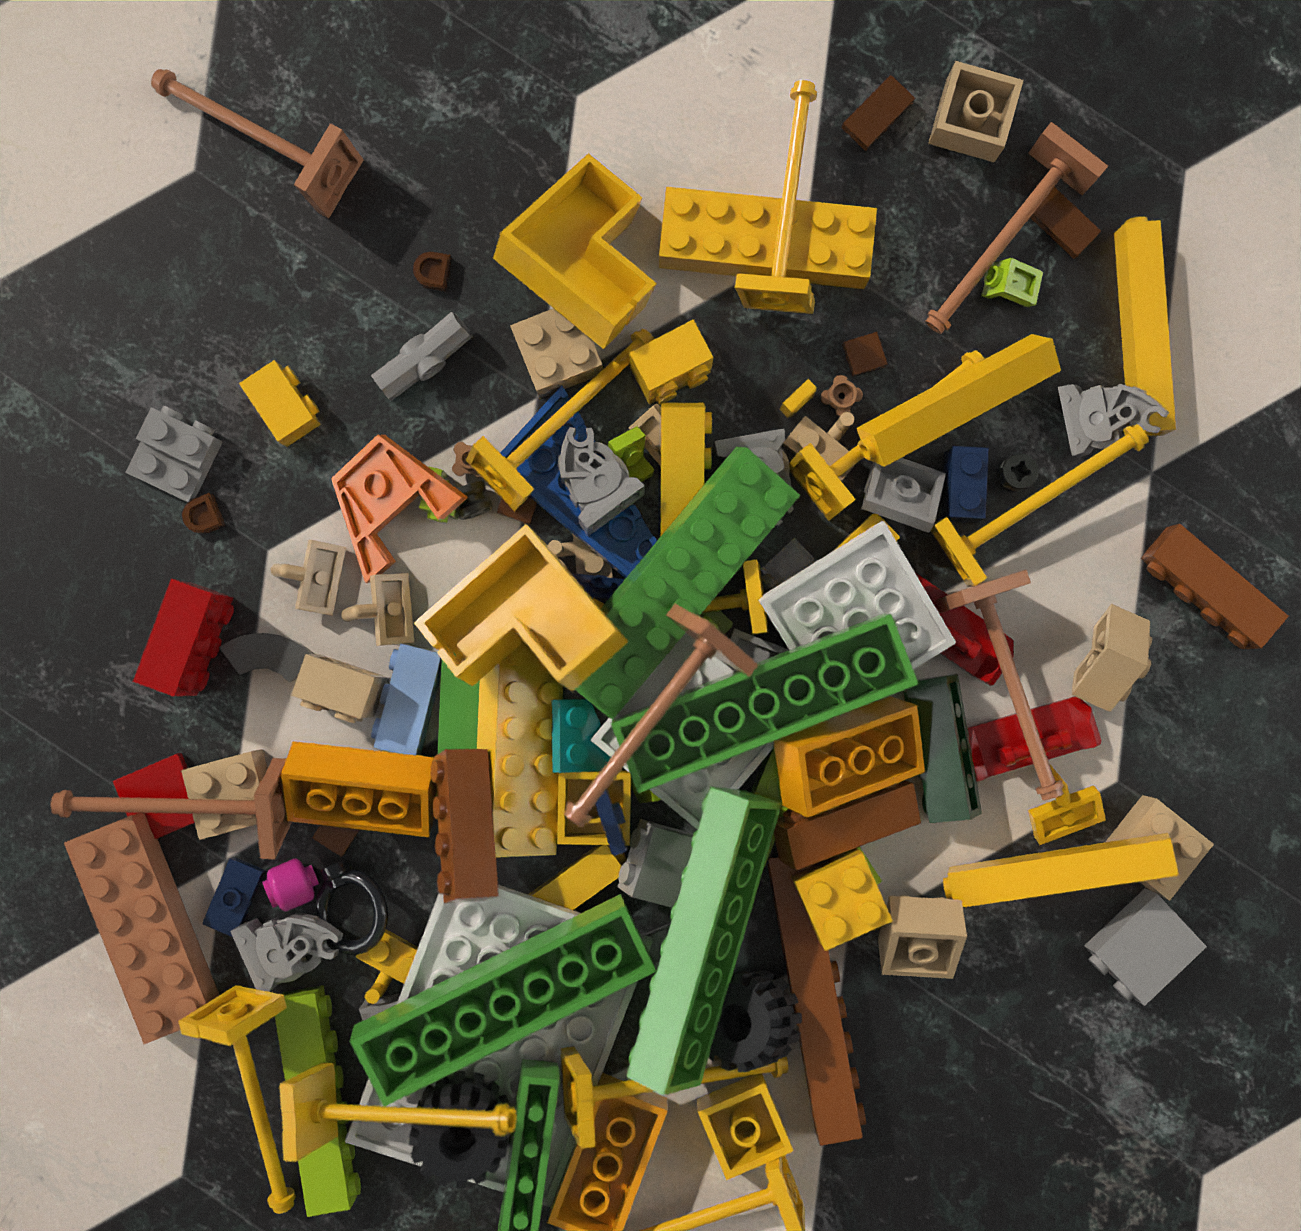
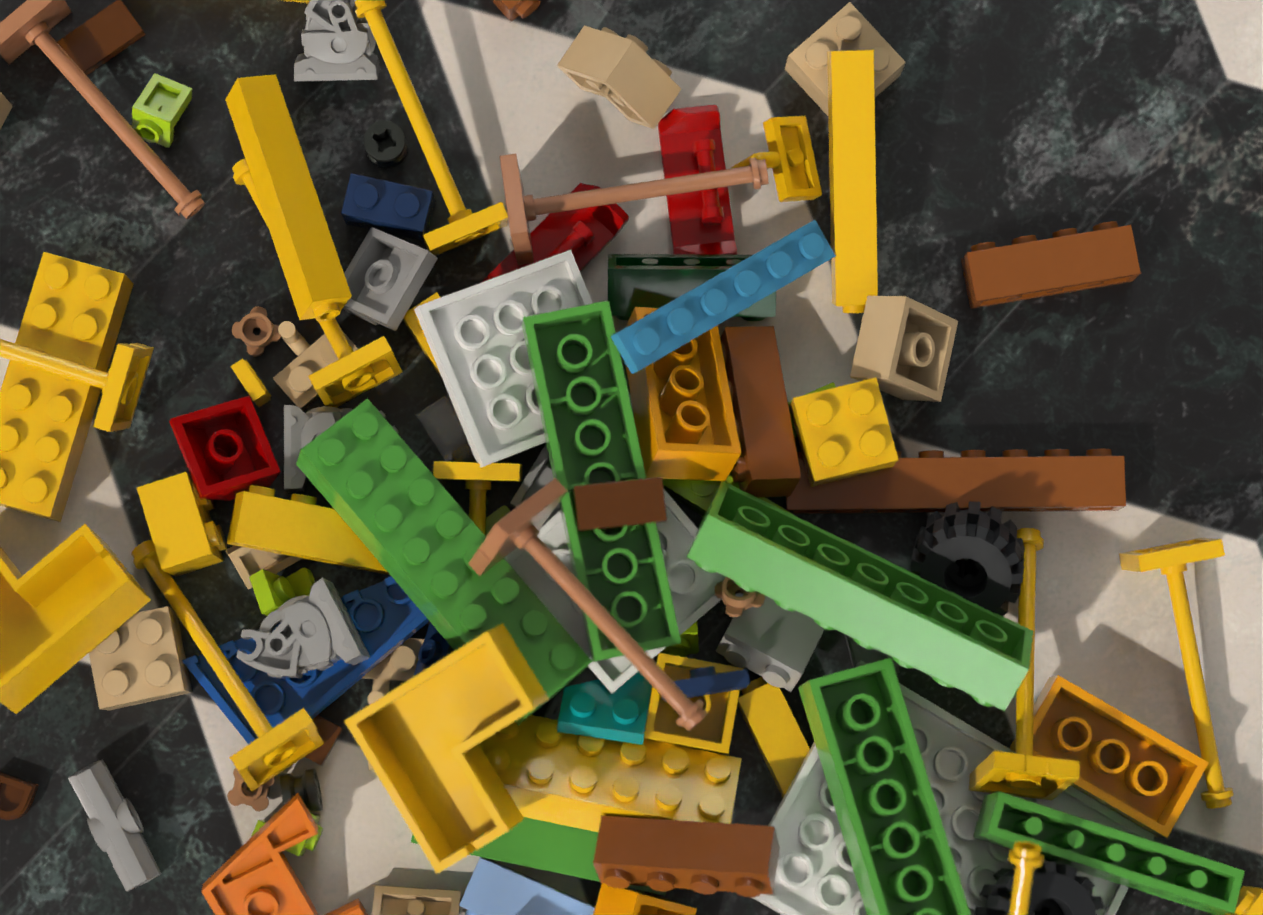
camera: 85 degrees left, 5 degrees down
(679, 831) = (736, 605): none -> medium nougat plate
(738, 387) = (225, 449): none -> red slope
(744, 1125) = (1090, 589): yellow brick -> none
(746, 723) = (620, 503): none -> reddish brown tile
(864, 354) = (212, 295): reddish brown tile -> none
(938, 778) = (722, 297): none -> dark azure plate
(1014, 1049) = (1050, 265): none -> dark orange brick
(1144, 947) = (957, 99): light grey brick -> none

